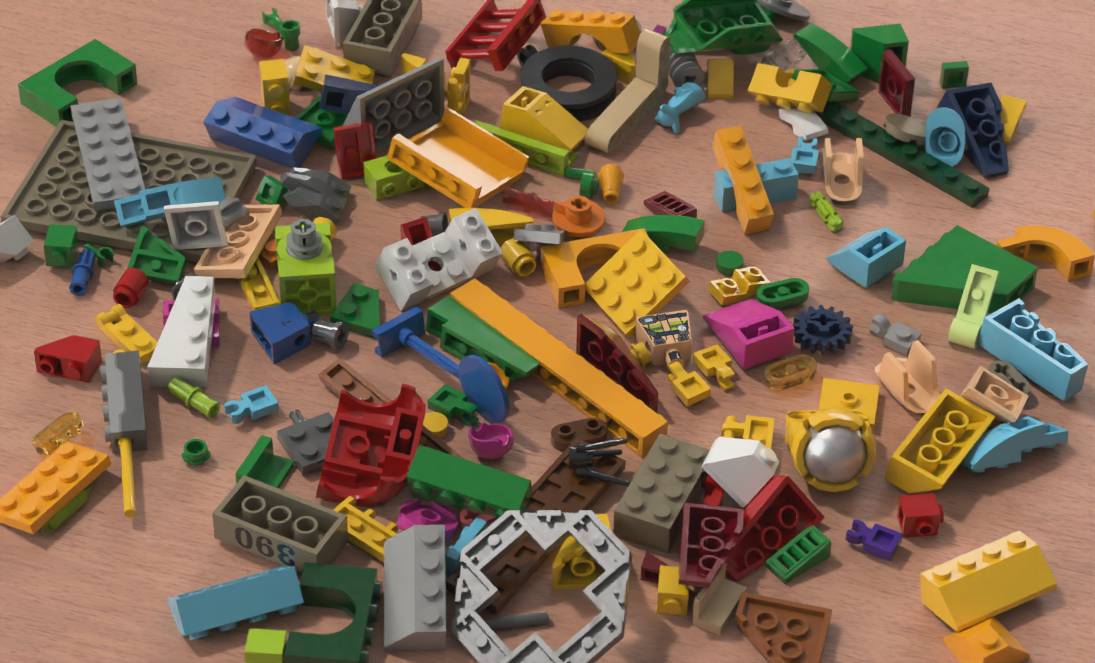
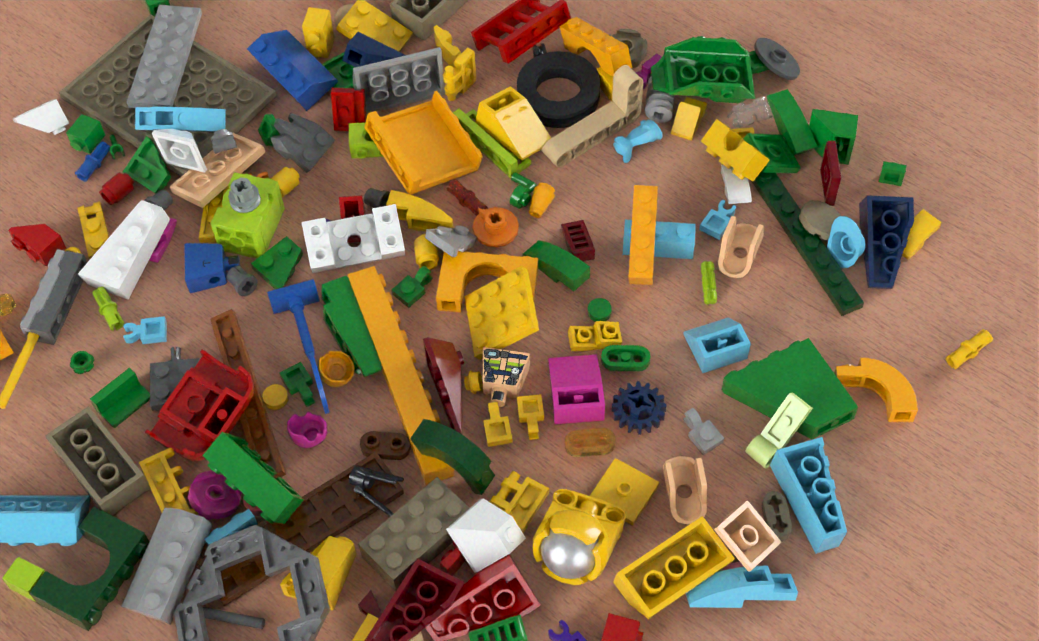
camera: 25 degrees right, 15 degrees up
(523, 294) = (412, 289): none -> green plate
(668, 400) = (457, 451): none -> dark green arch

